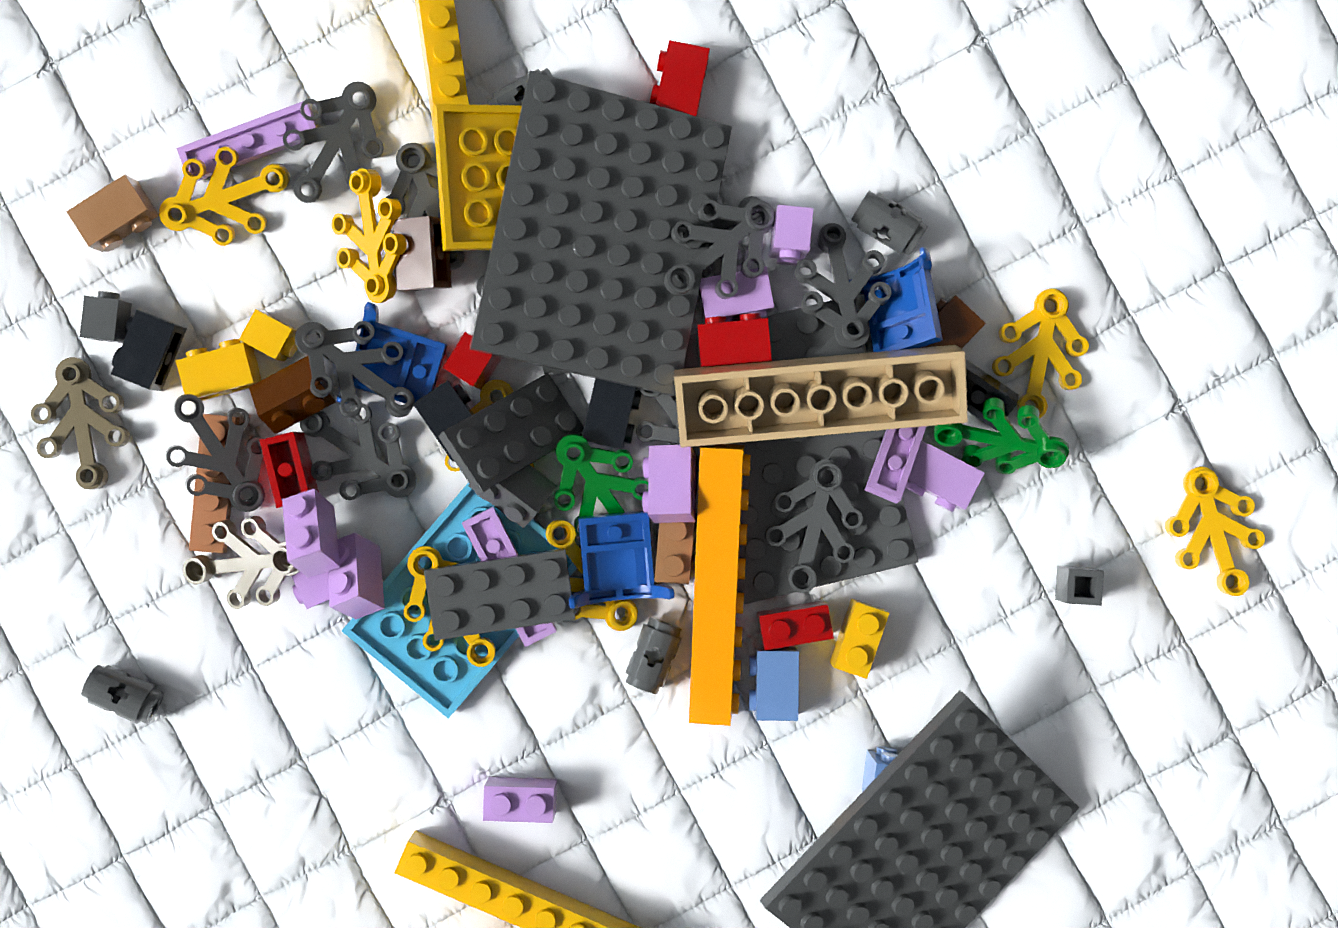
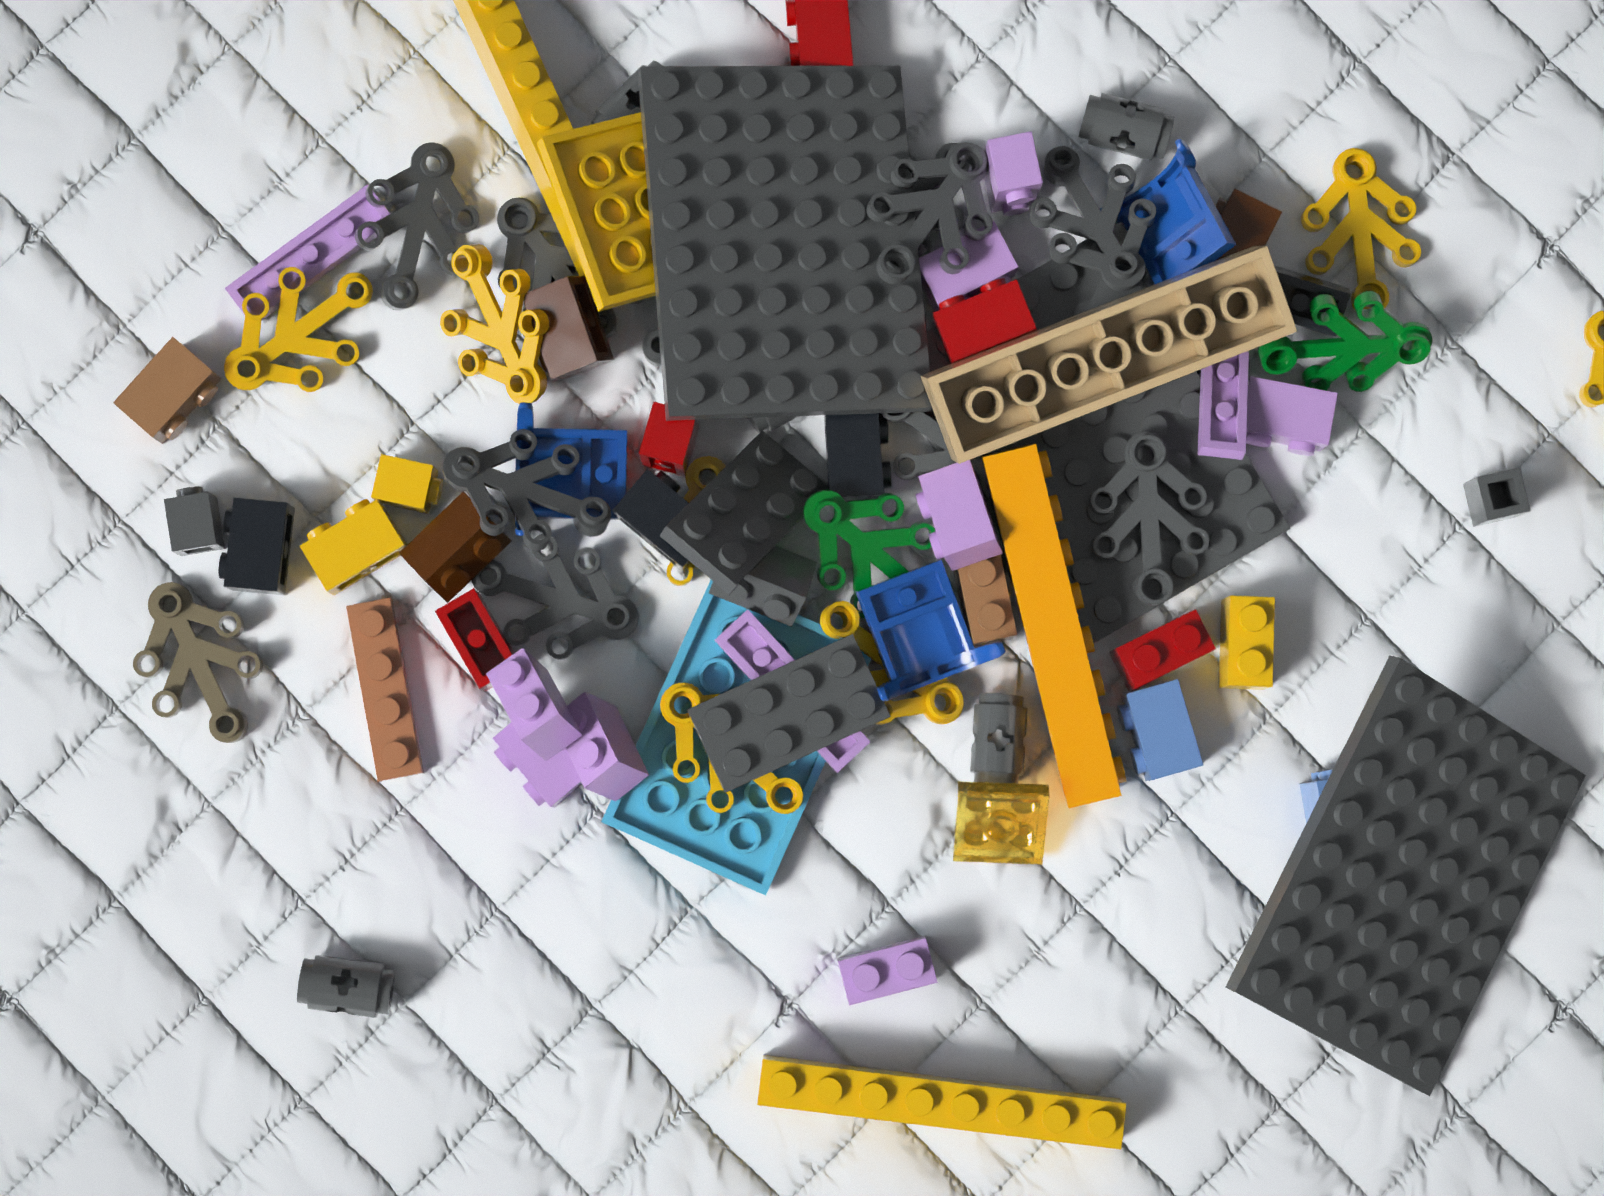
camera: 20 degrees left, 5 degrees down
(222, 458) = (390, 649): dark grey plant -> none
(250, 562) = (462, 768): plant -> none
(636, 717) = (1000, 822): none -> clear yellow plate

